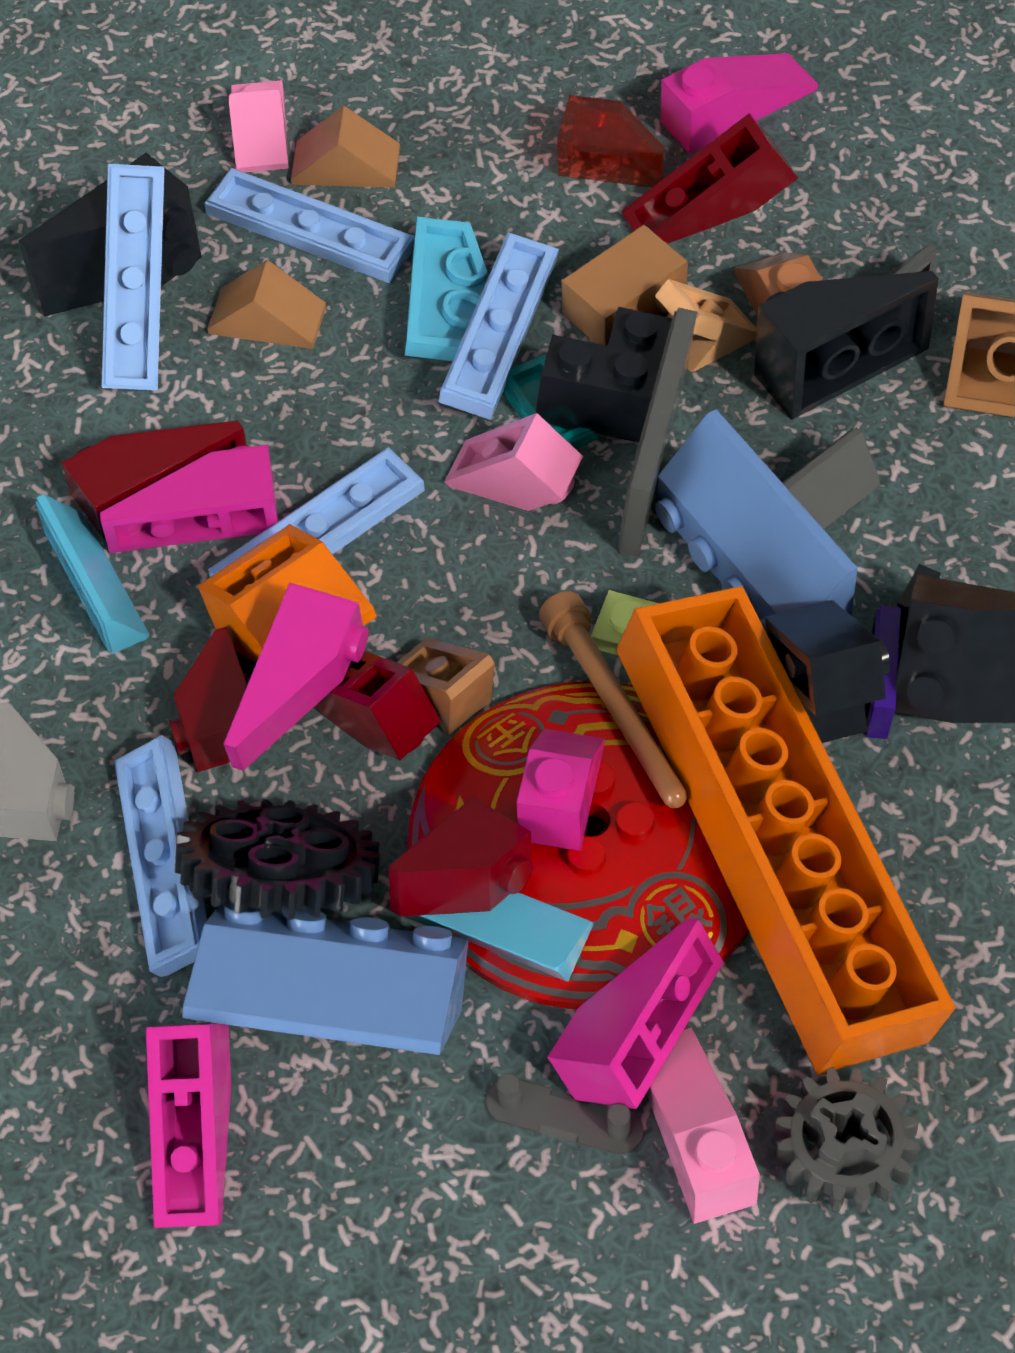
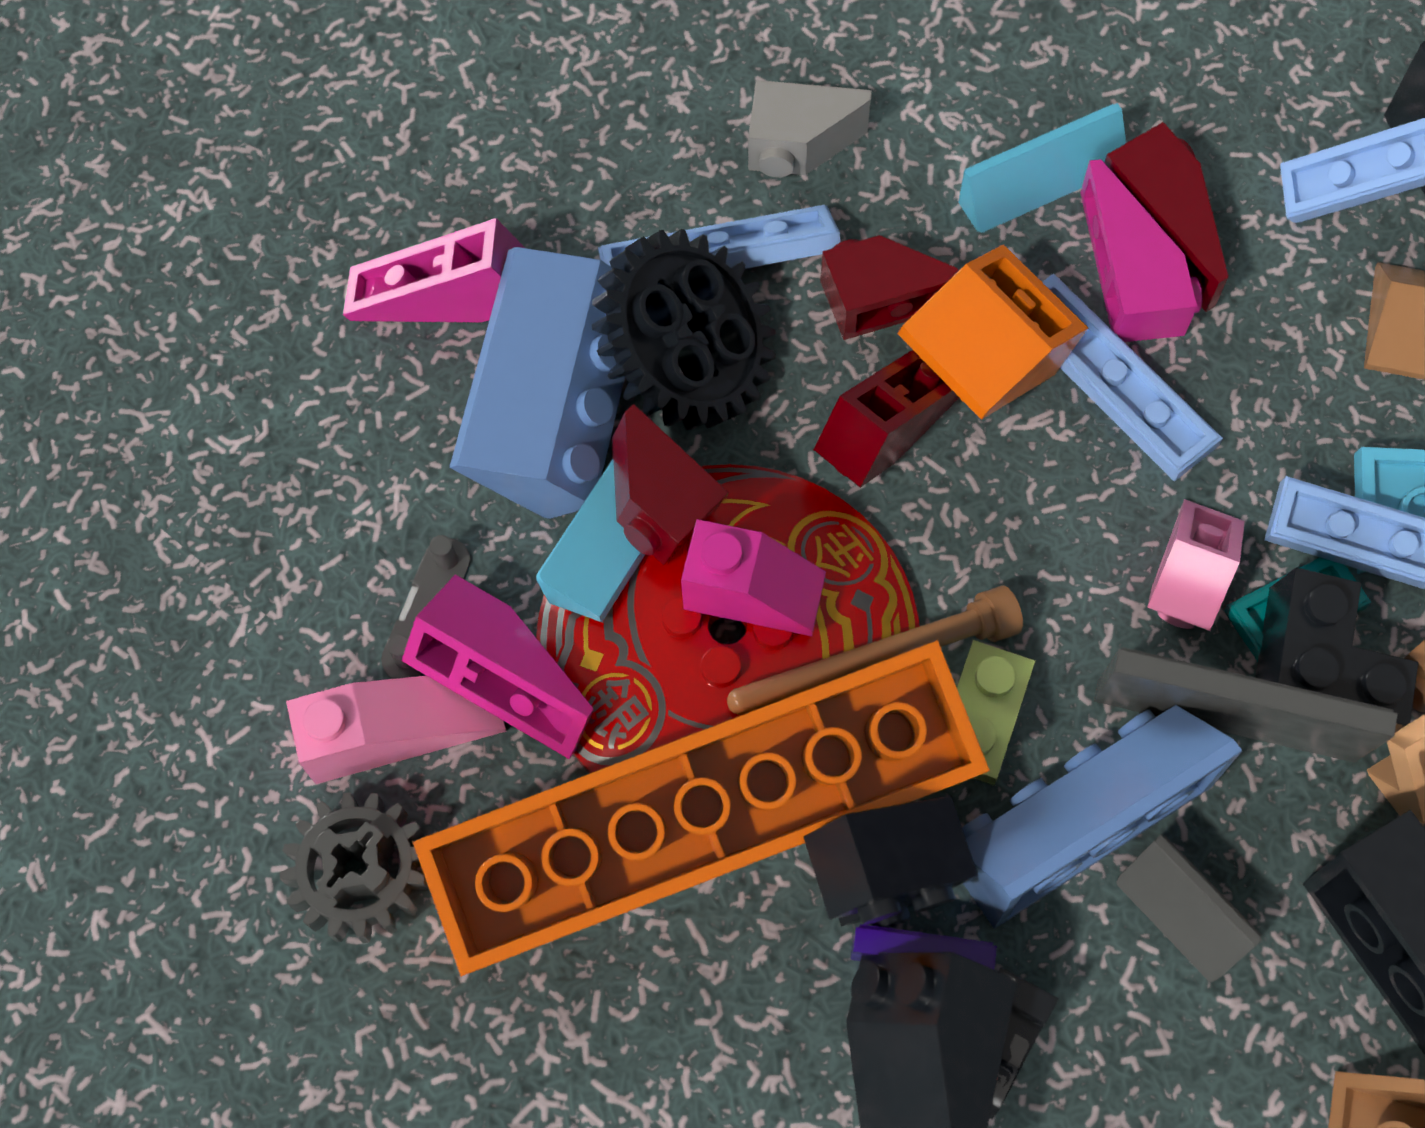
camera: 90 degrees right, 10 degrees up
(298, 667) = (896, 328): dark pink slope -> none
(453, 679) = (907, 486): medium nougat slope -> none

